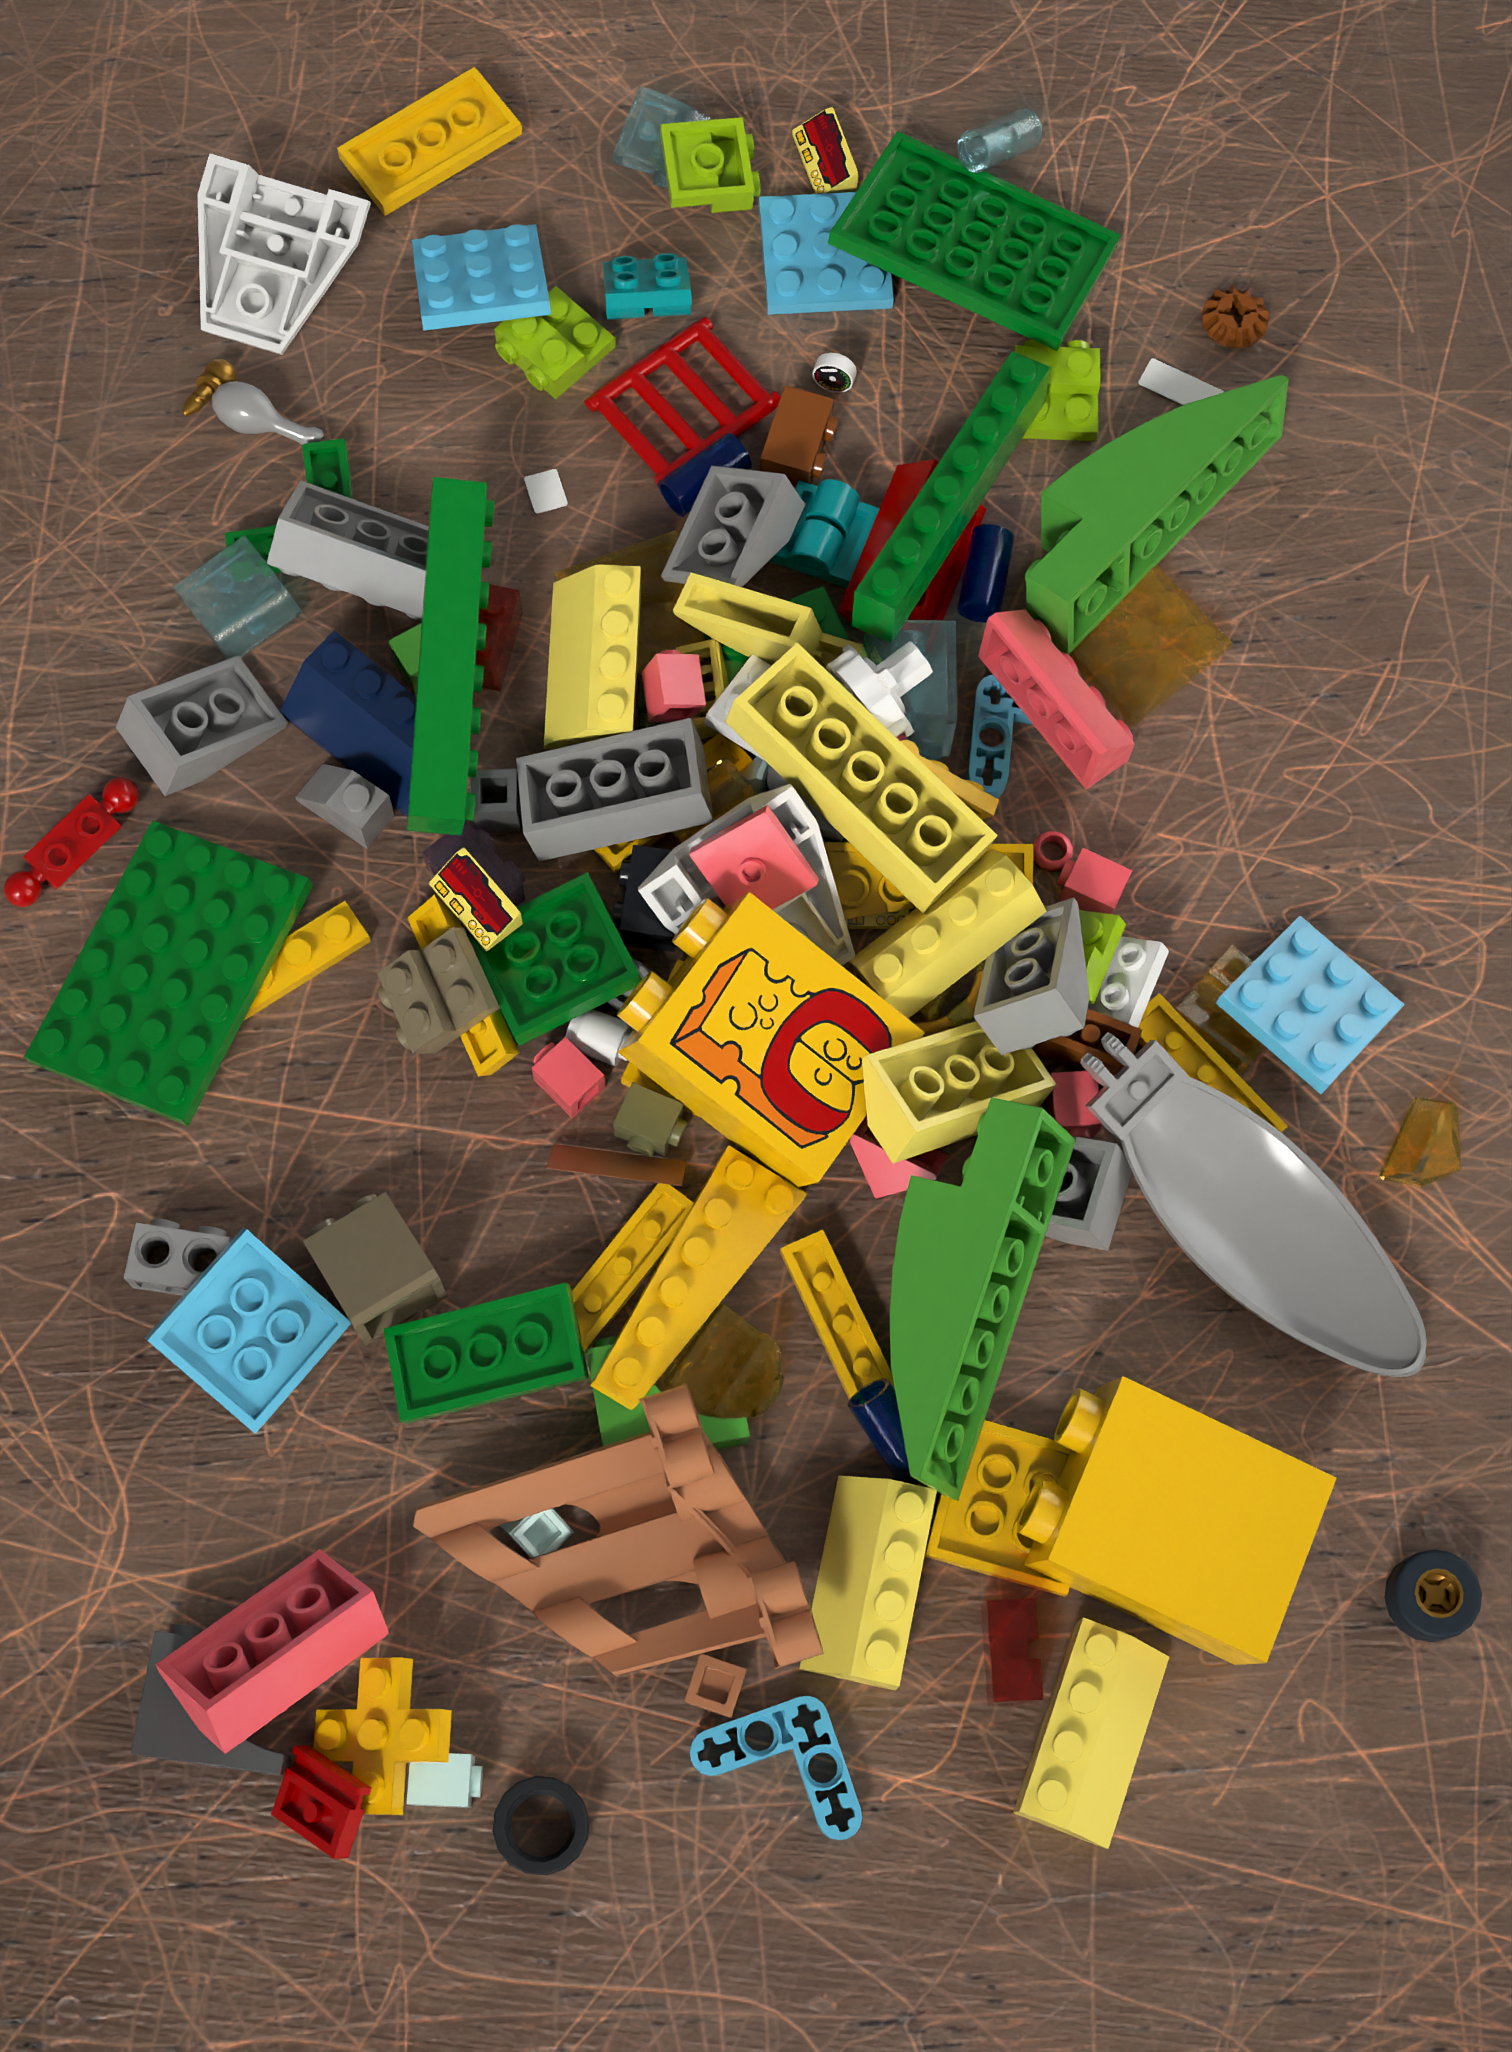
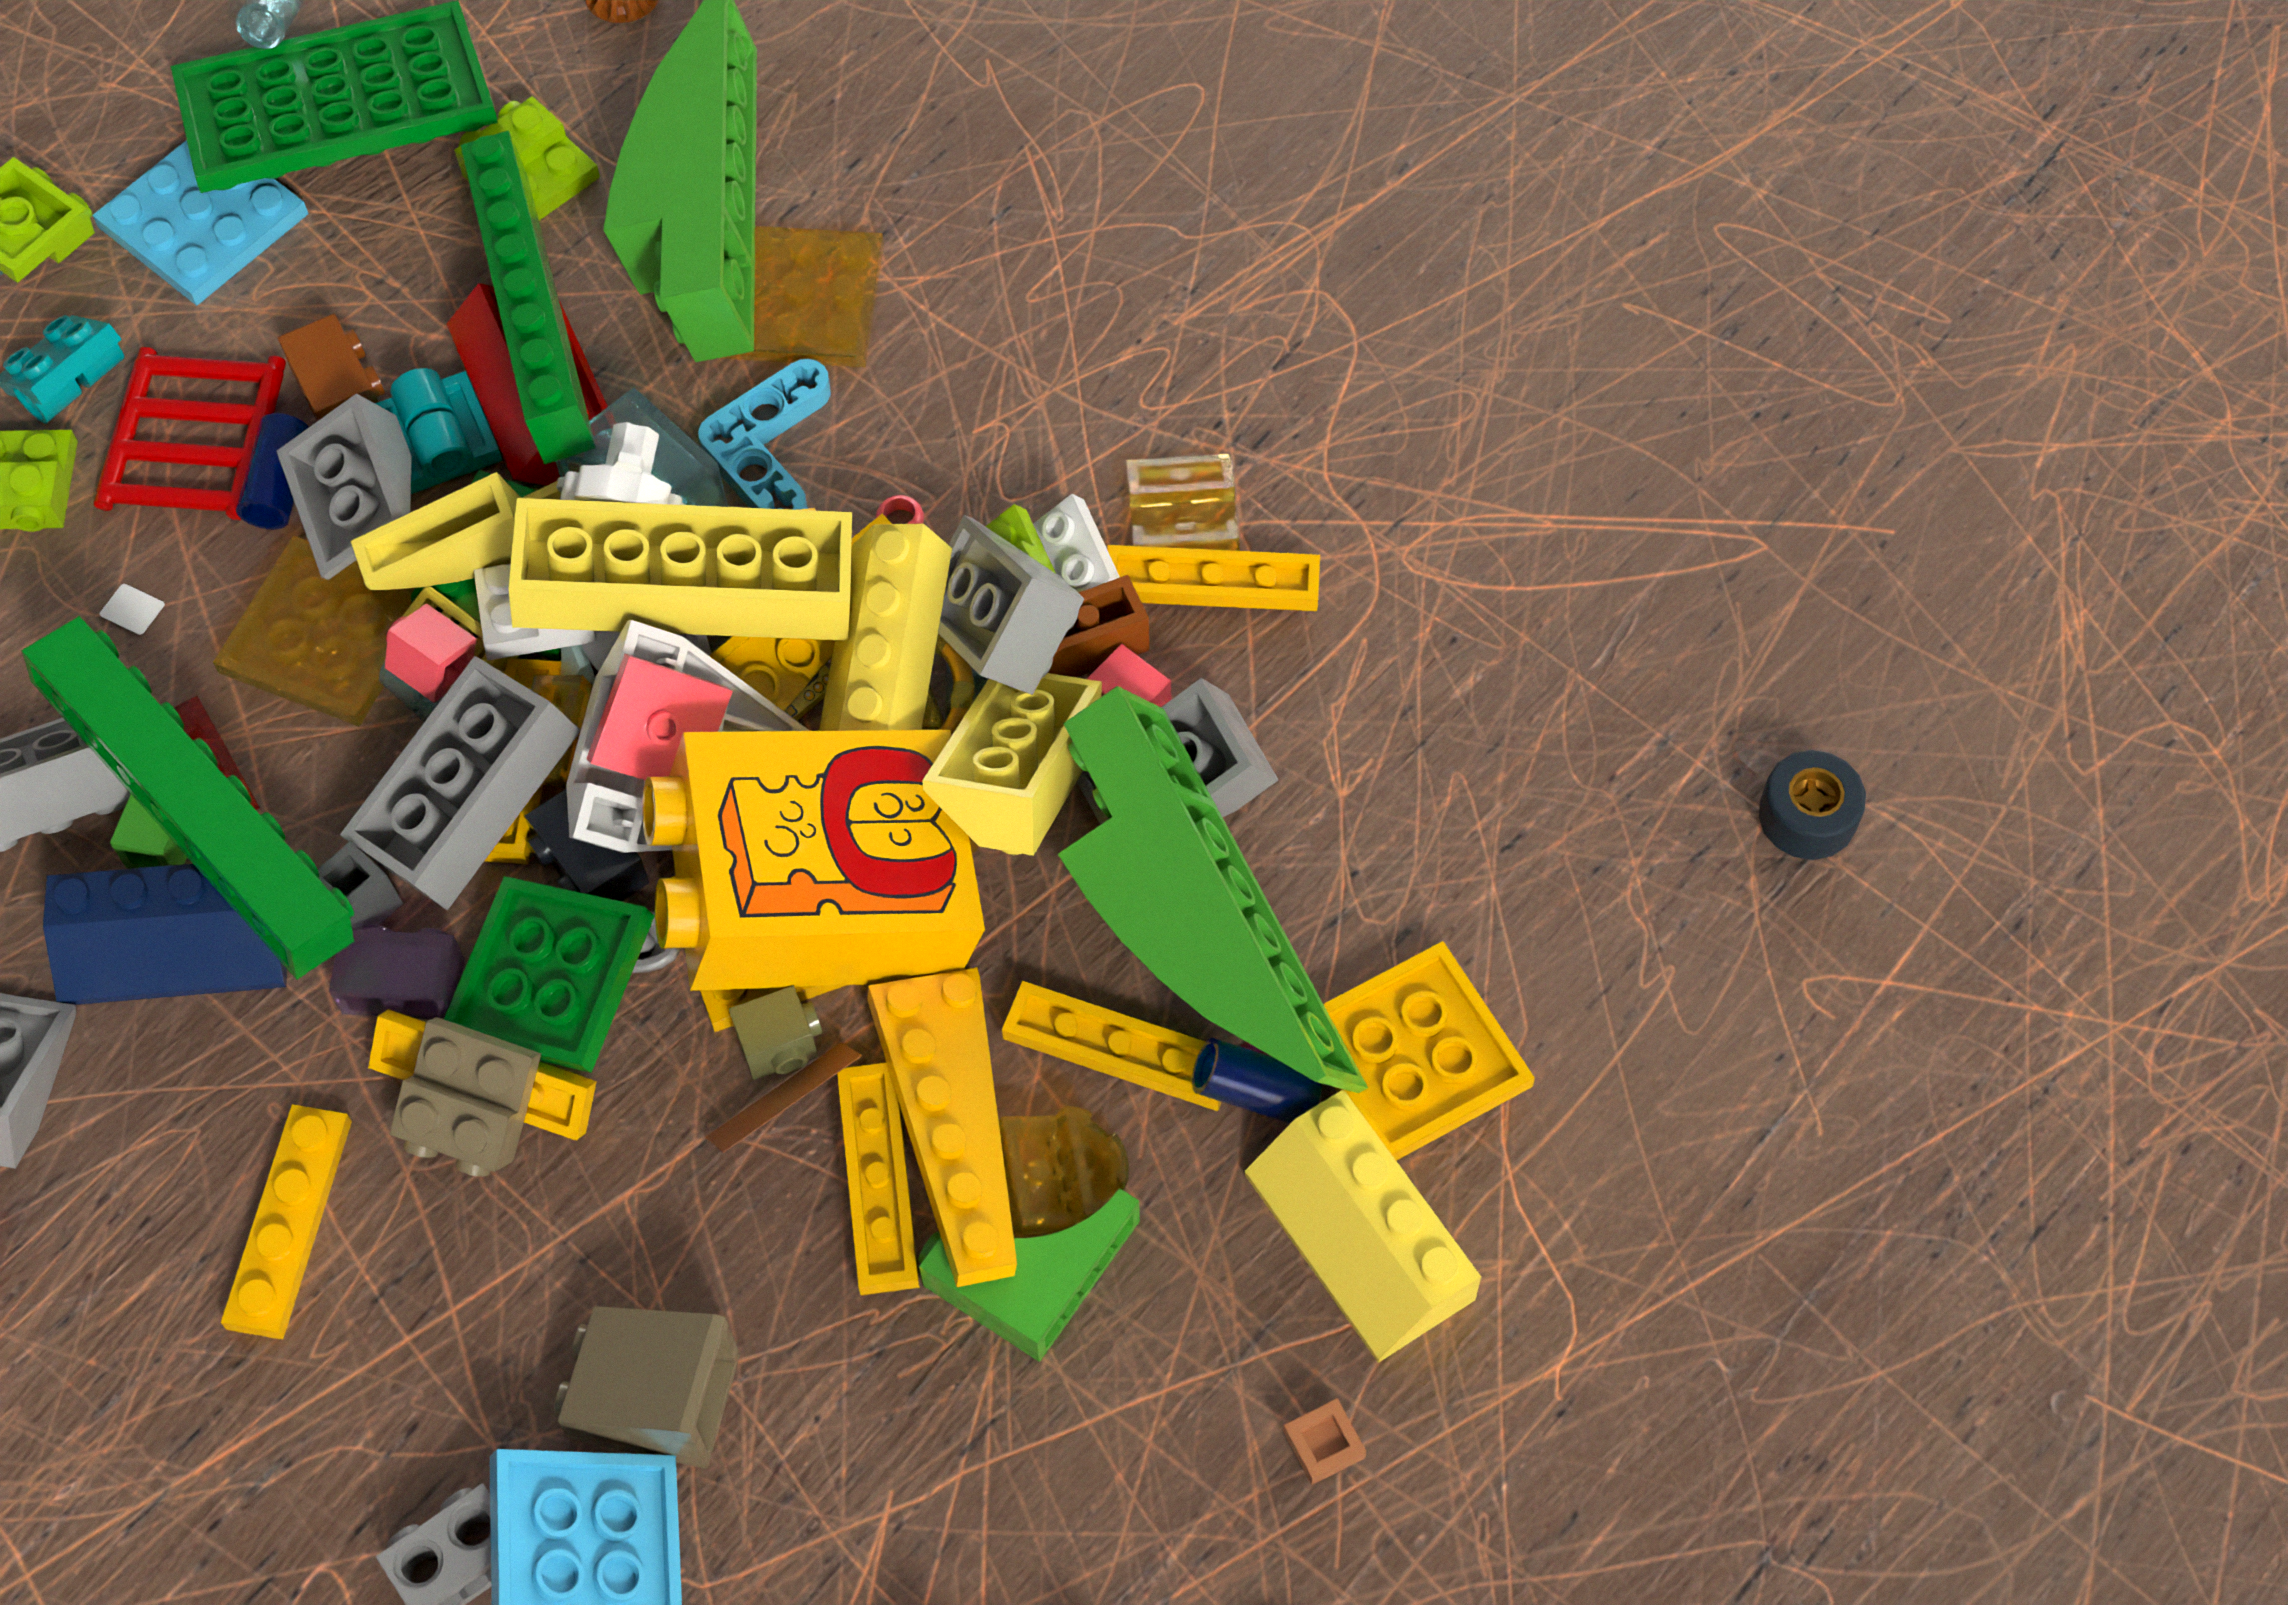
camera: 40 degrees left, 10 degrees down
(169, 972) = (178, 1318): green plate -> none
(347, 803) = (207, 1018): light grey slope -> none
(476, 900) = (424, 980): slope -> none
(485, 1353) = (829, 1360): green plate -> none
(539, 1532) = (1030, 1470): light aqua slope -> none
(567, 1076) = (661, 1063): coral brick -> none
(593, 655) = (323, 691): light yellow slope -> none
(599, 1036) = (657, 1004): white brick -> none
(662, 1516) = (1127, 1340): nougat panel -> none
(787, 1738) = (1428, 1425): medium azure beam -> none
(826, 154) = (120, 135): slope -> none
(834, 372) = (310, 298): tile -> none
(889, 1177) = (1024, 880): coral slope -> none
(985, 572) = (613, 346): clear blue pin -> none
(1006, 1632) = (1534, 1171): clear red brick -> none
(1055, 696) = (777, 388): coral slope -> none
(1092, 1733) = (1666, 1170): light yellow slope -> none
(1093, 882) = (960, 495): coral brick -> none
(1175, 383) = (620, 81): white sticker -> none
(1175, 1519) = (1559, 927): yellow brick -> none
(1257, 1213) = (1364, 638): light grey windscreen -> none
(1309, 1004) = (1238, 448): medium azure plate -> none
(1425, 1145) = (1439, 475): clear yellow slope -> none

